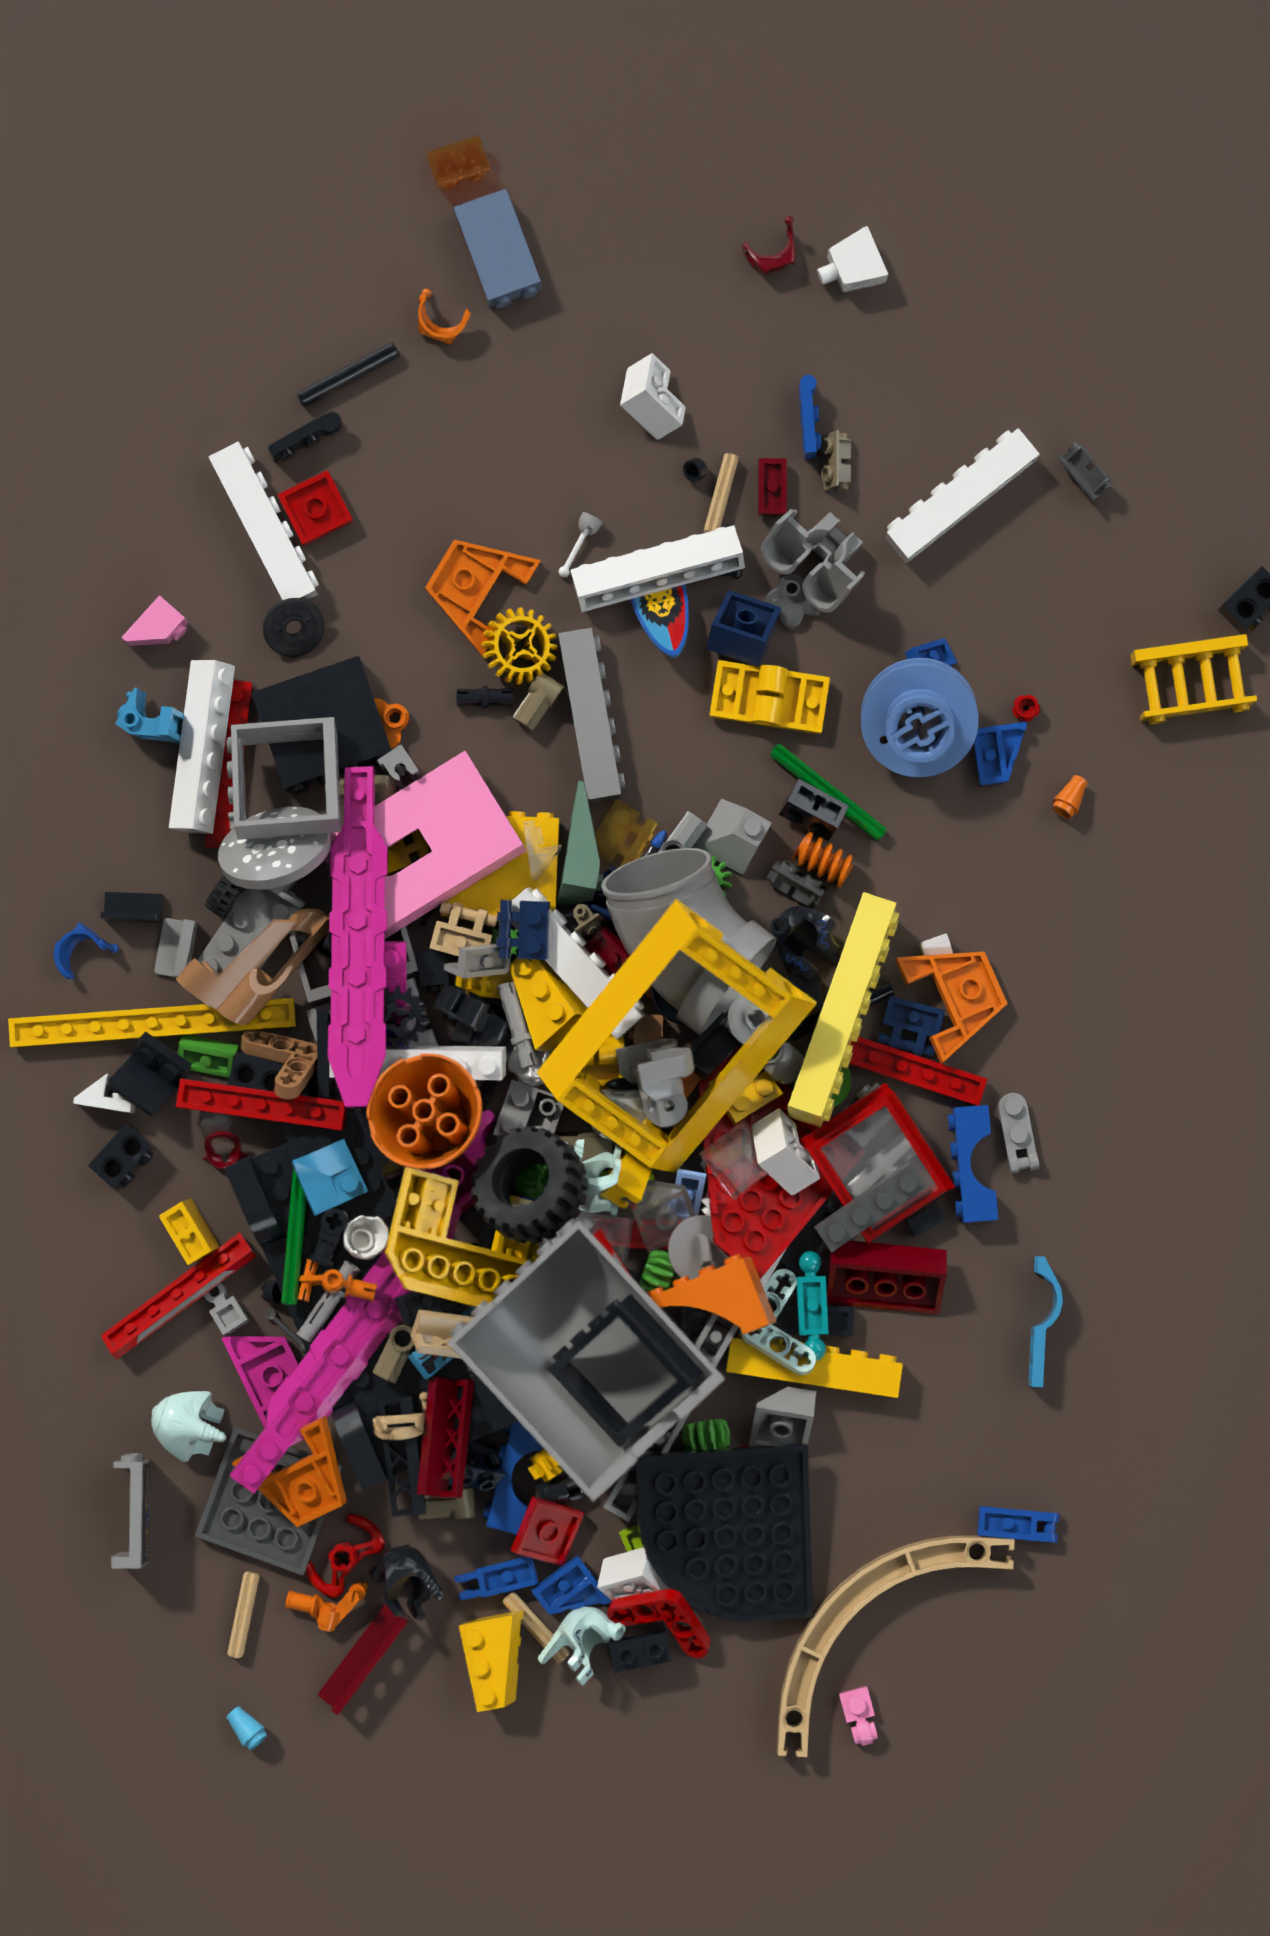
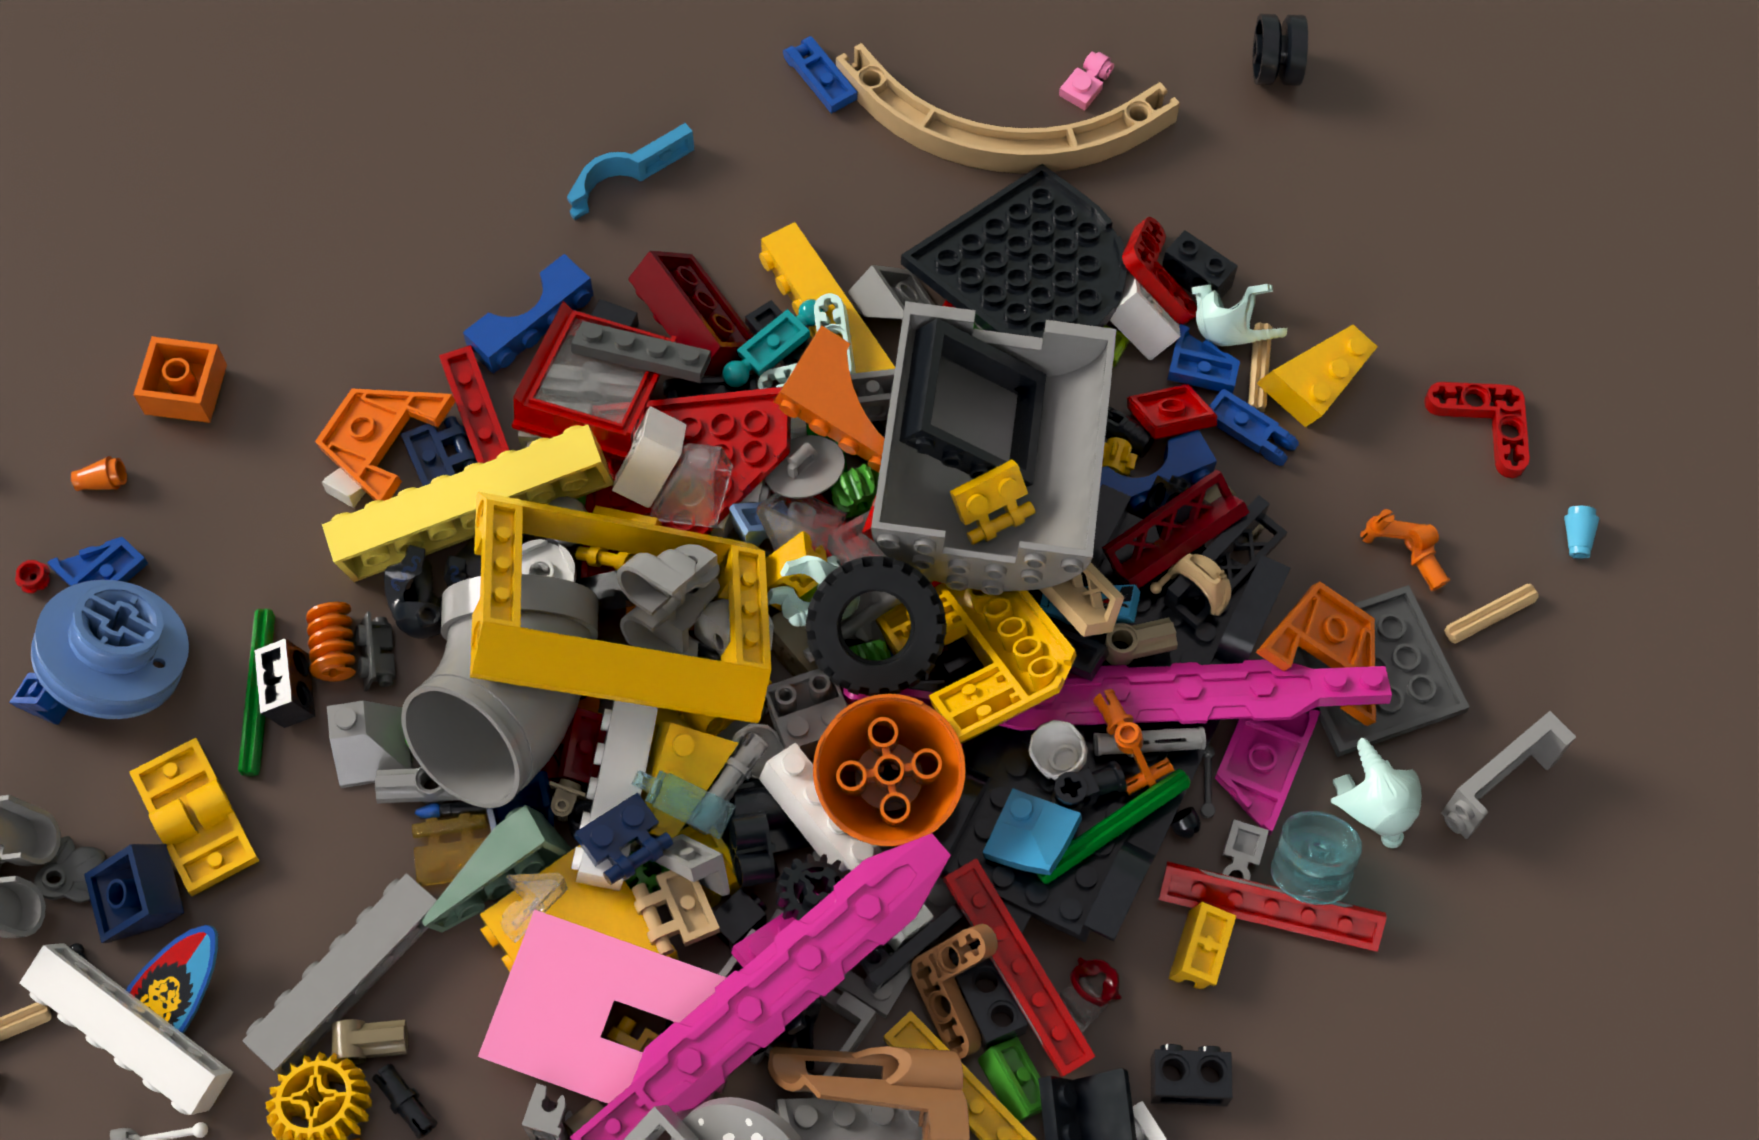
camera: 130 degrees left, 20 degrees down
(180, 1344) = (1316, 857): none -> clear light blue wheel
(362, 1658) = (1423, 481): dark red fence -> none
(368, 1758) = (1499, 412): none -> red beam
(375, 1546) = (1356, 561): red piece -> none
(398, 1566) = (1318, 494): black piece -> none
(519, 985) = (686, 802): none -> clear light blue hinge
(559, 1330) = (989, 493): none -> yellow plate
(760, 1872) = (1280, 49): none -> black wheel
(1017, 1132) = (471, 303): light grey plate -> none
(1101, 895) = (180, 379): none -> orange brick

